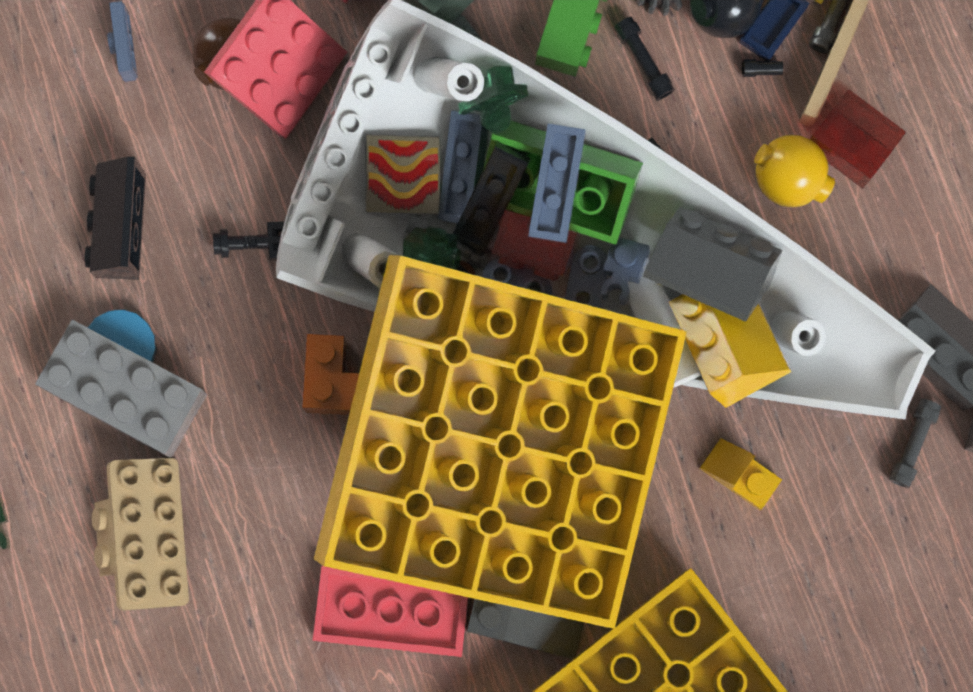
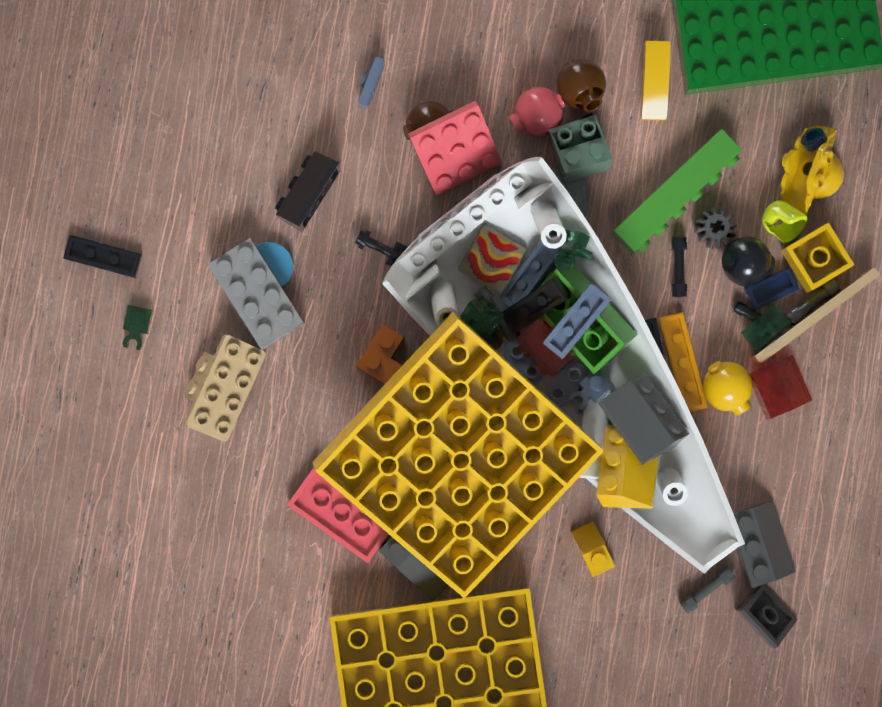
camera: 30 degrees right, 5 degrees up
(700, 155) = (682, 360): none -> light orange tile
(796, 72) = (765, 327): none -> clear green hips

